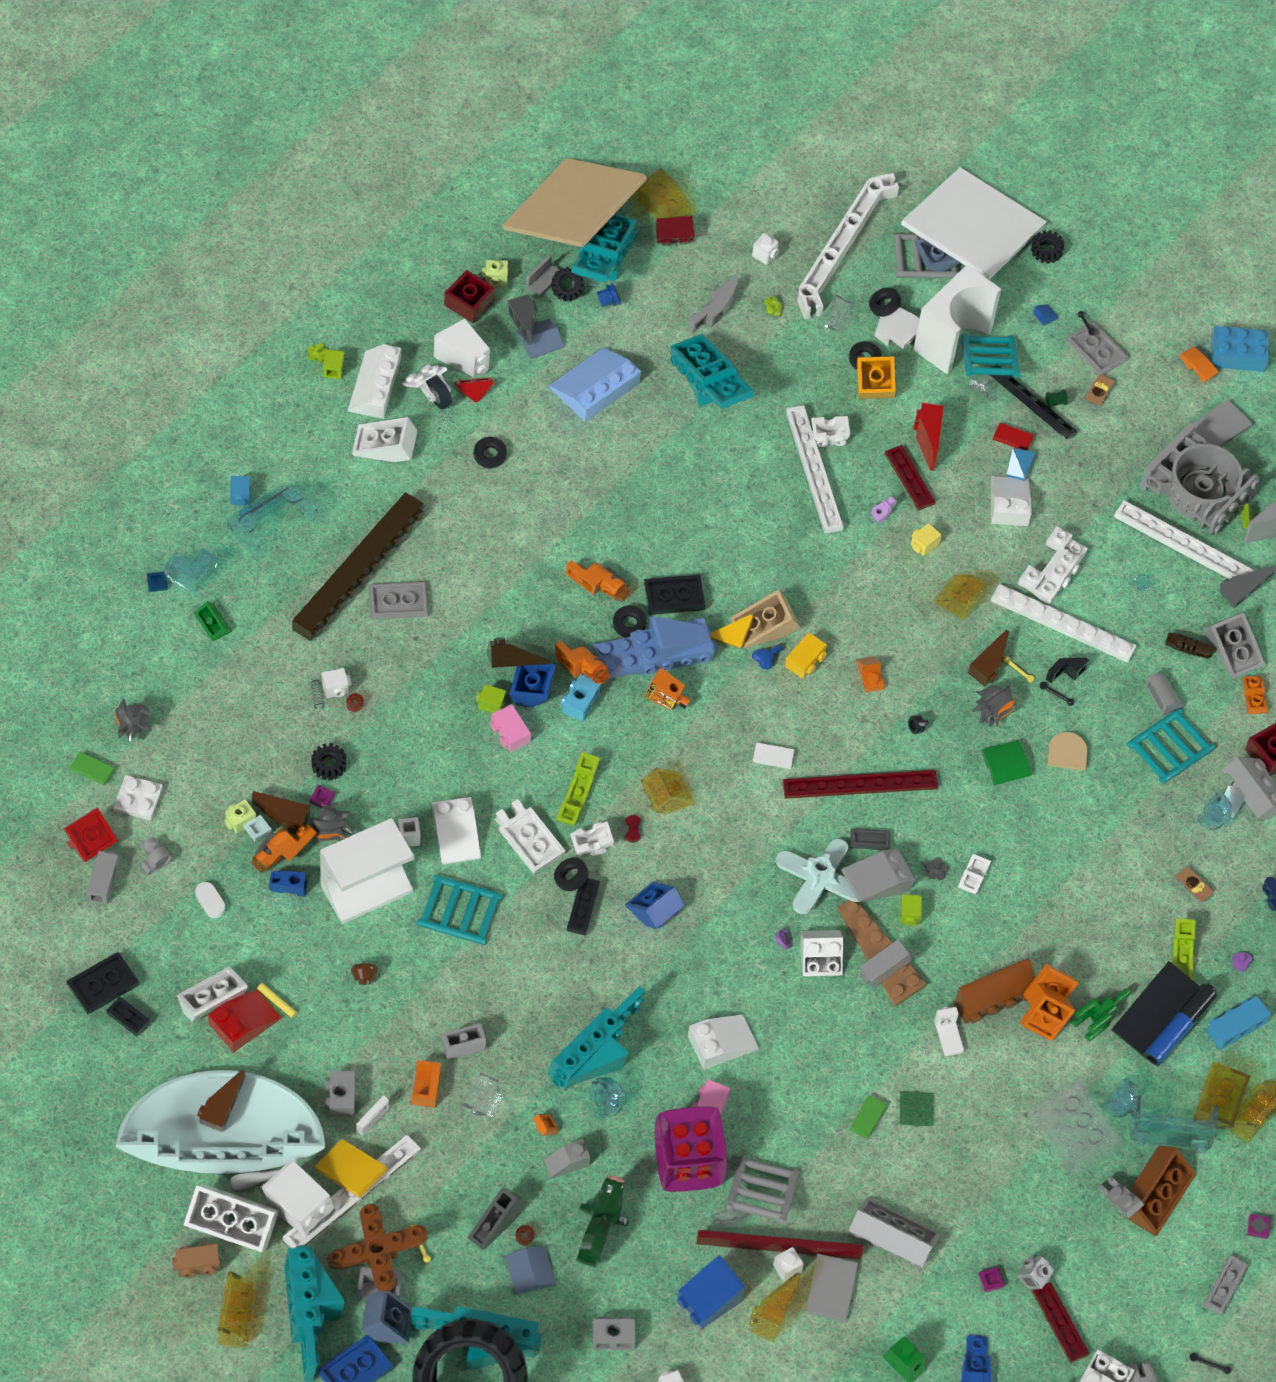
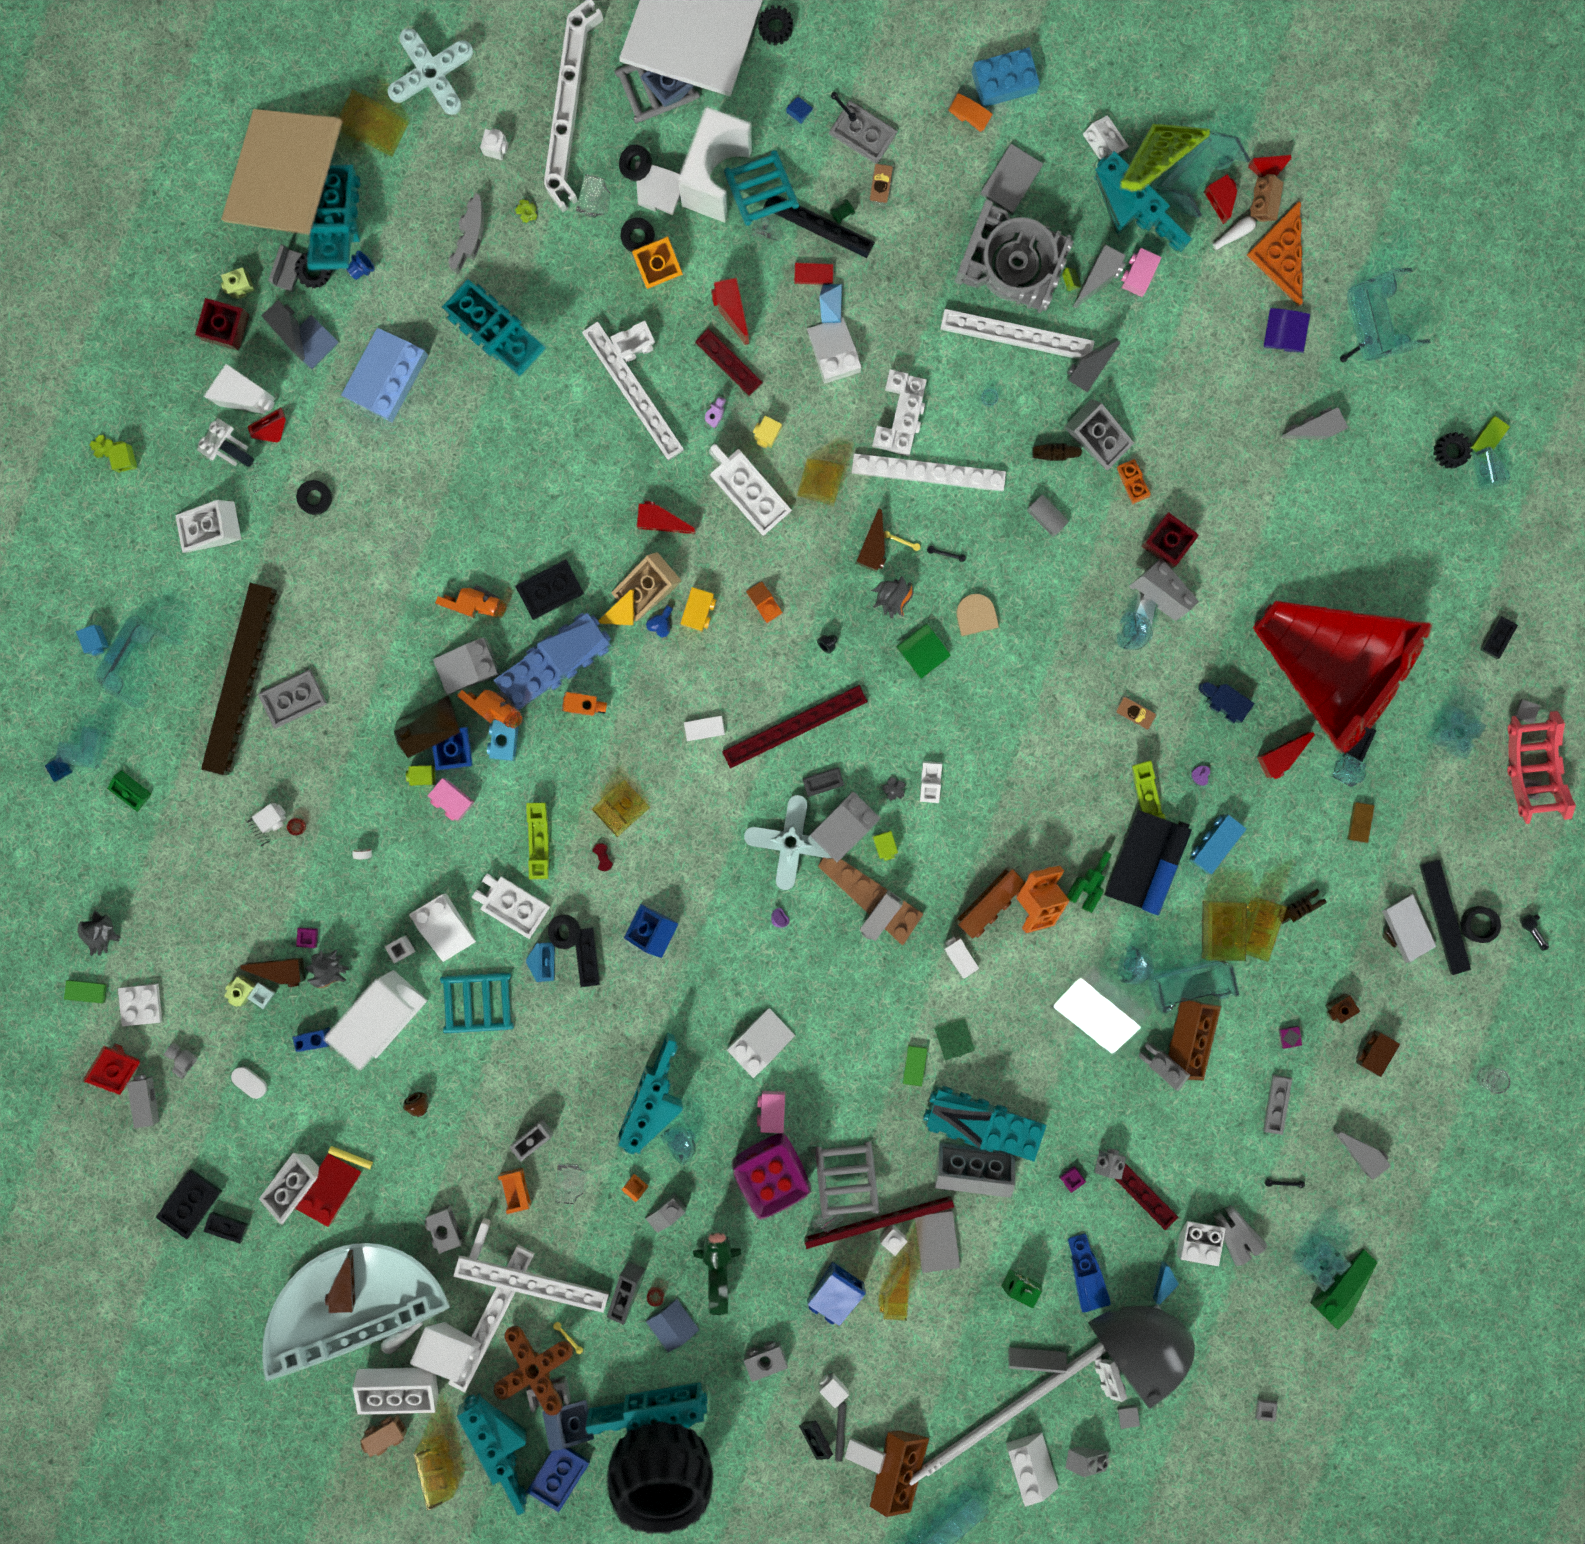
camera: 15 degrees left, 30 degrees up
(281, 844) = (290, 1009): orange plate -> none
(330, 751) = (287, 906): black tyre -> none
(350, 1168) = (481, 1301): yellow tile -> none
(375, 381) = (171, 460): white slope -> none
(407, 744) = (362, 853): none -> white tile
(408, 1170) = (531, 1284): none -> white plate
(538, 894) = (542, 962): none -> dark azure slope
(572, 625) = (466, 666): none -> light grey slope
(592, 841) = (569, 889): white cylinder -> none
(627, 611) = (518, 624): black tyre -> none
(674, 230) = (395, 158): dark red brick -> none
(732, 178) = (426, 65): none -> light aqua piece
(800, 574) = (658, 519): none -> red slope
(821, 953) = (818, 920): white slope -> none
(890, 575) = (748, 490): none -> white hinge
(918, 1189) = (983, 1124): none -> teal wedge
(1071, 666) = (954, 522): black slope -> none
(1178, 767) = (1056, 549): teal bar -> none

